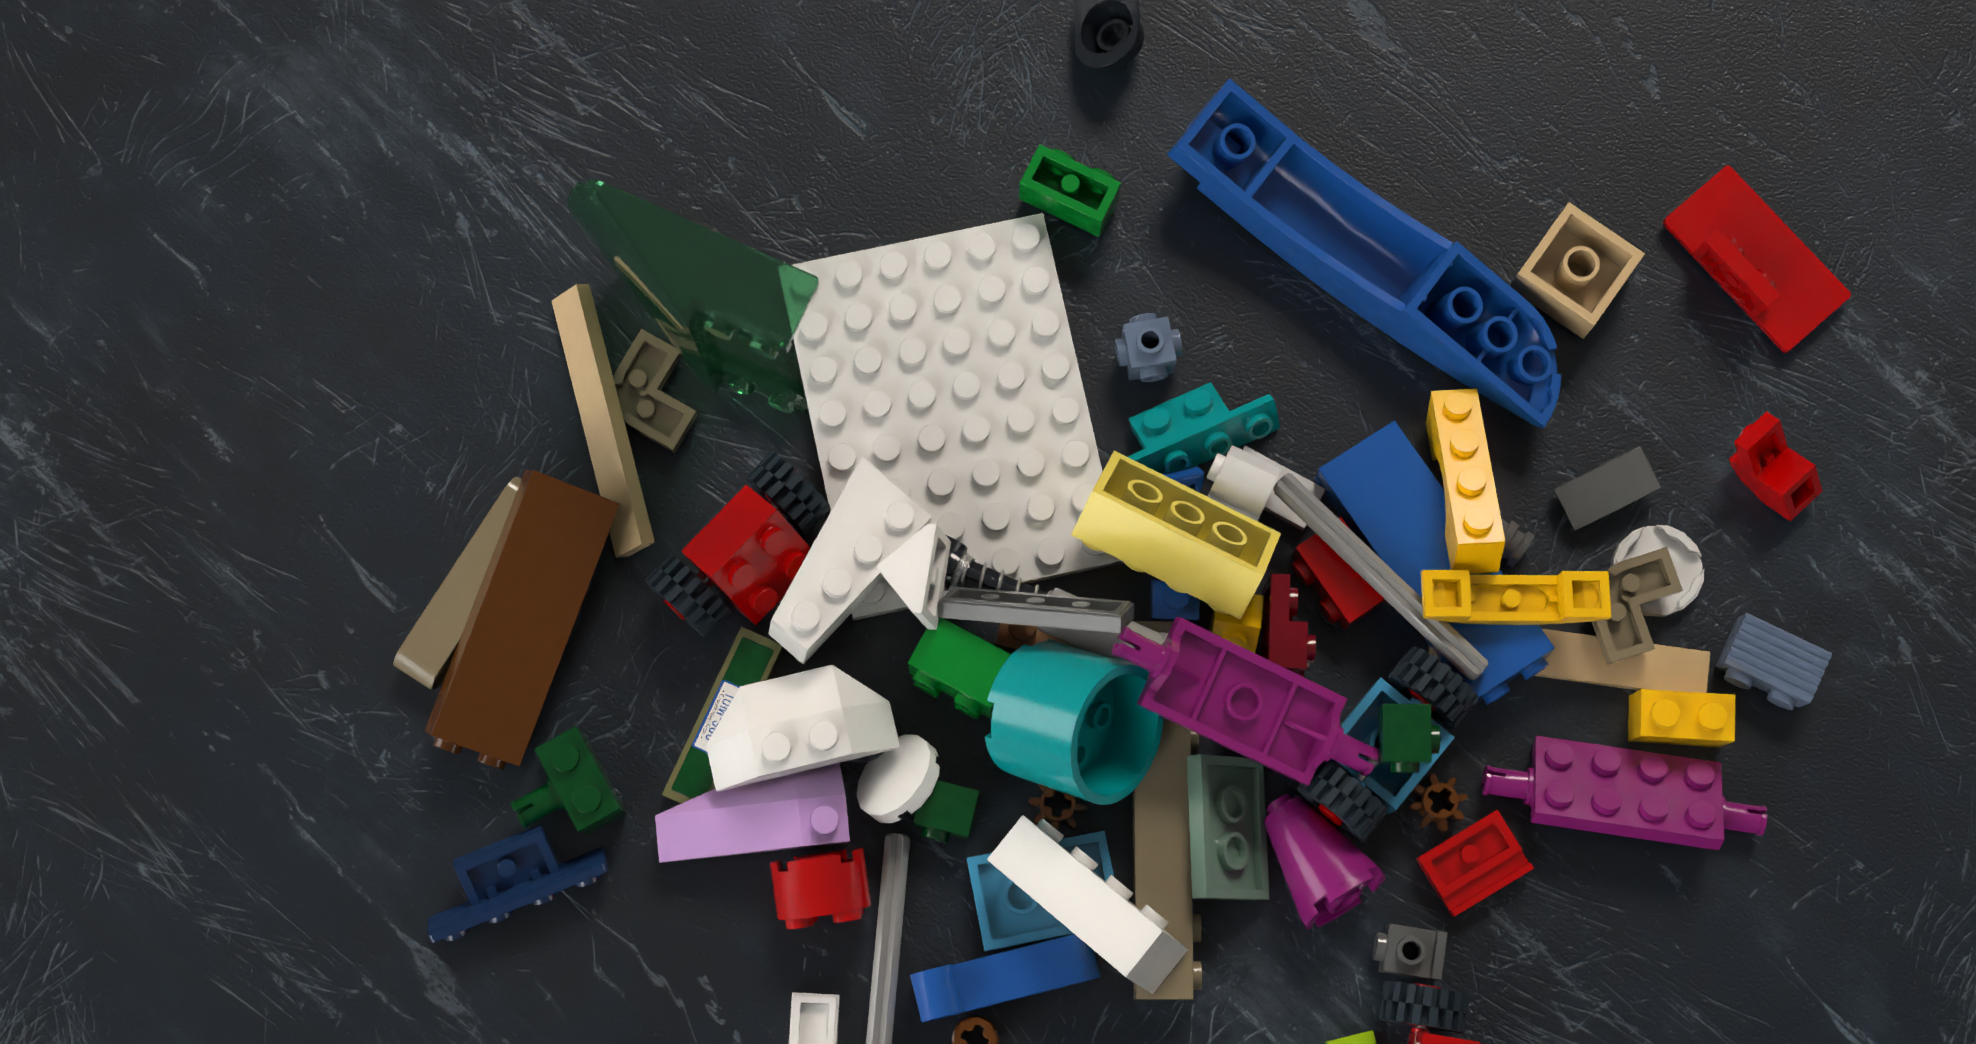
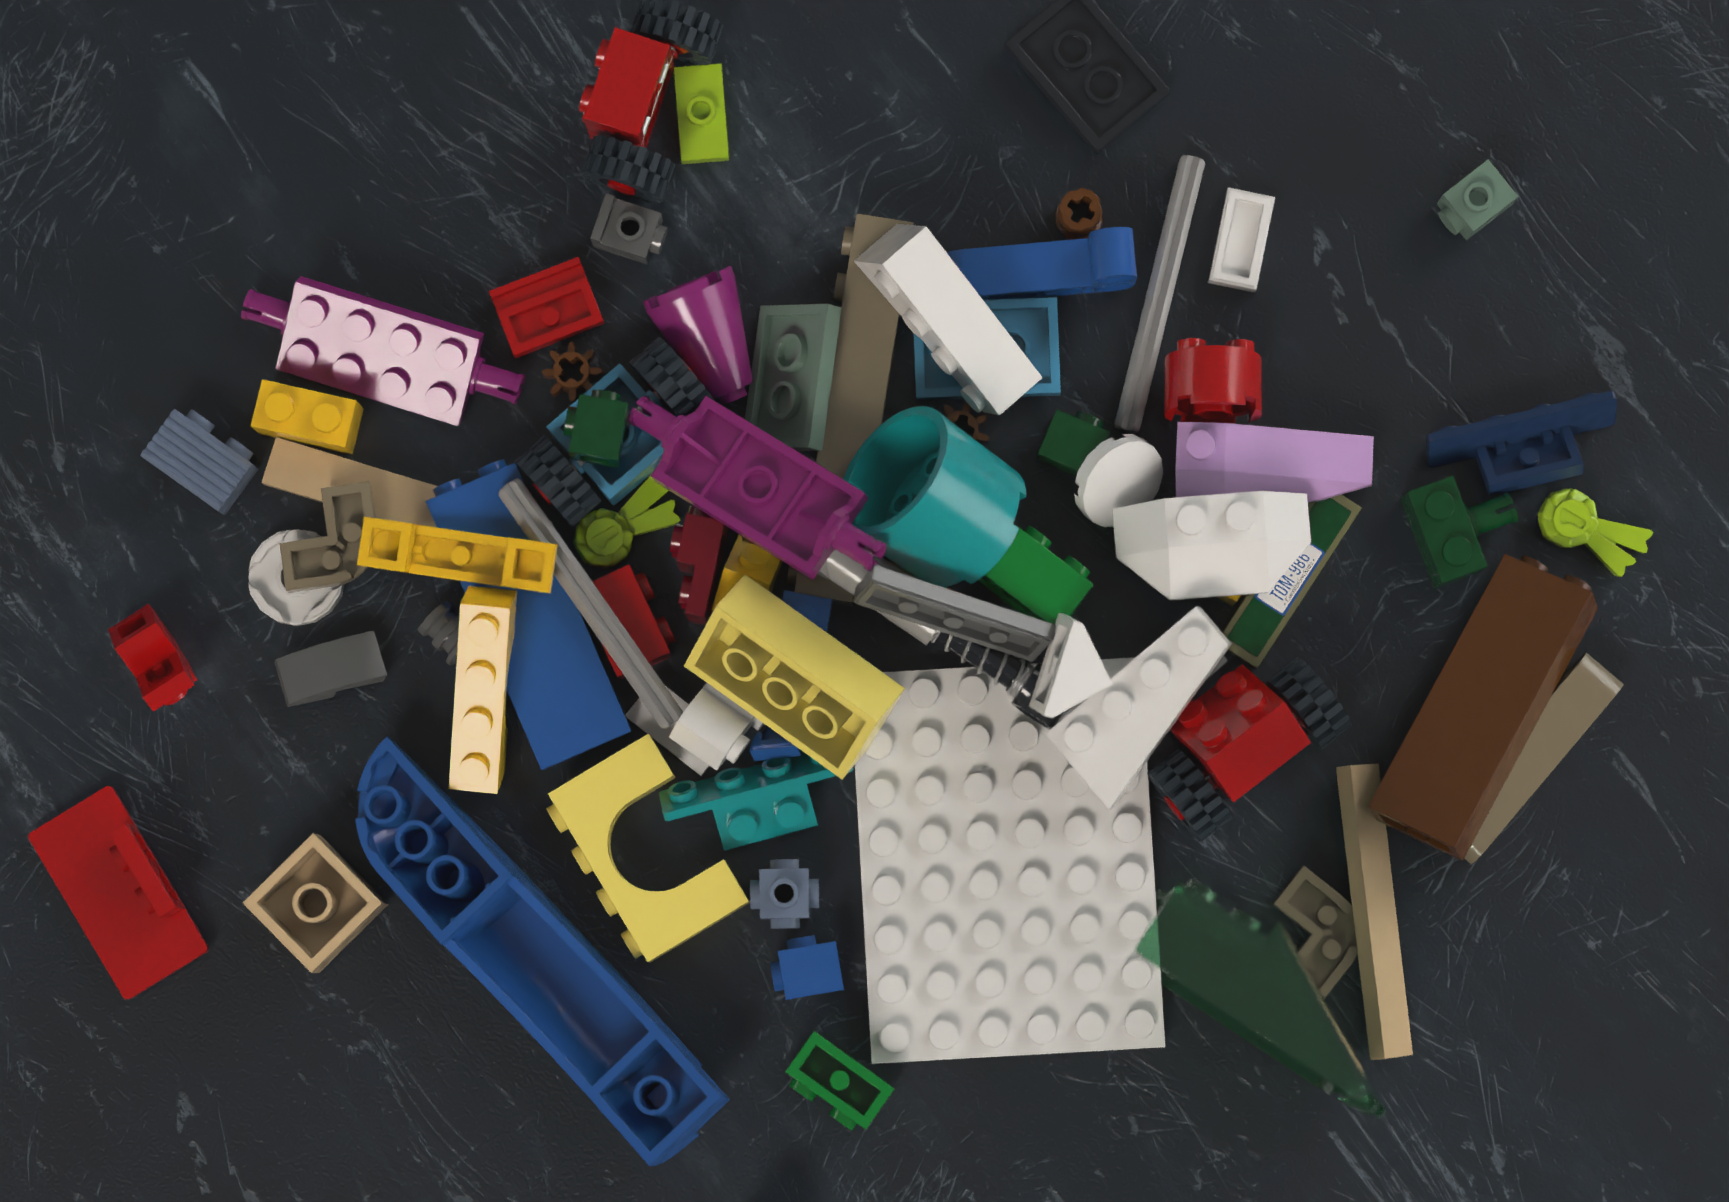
camera: 170 degrees left, 5 degrees up
(459, 815) = (1571, 520): none -> lime piece
(1114, 286) = (807, 968): none -> blue brick
(1266, 310) = (590, 810): none -> light yellow arch
(1373, 654) = (606, 536): none -> lime piece

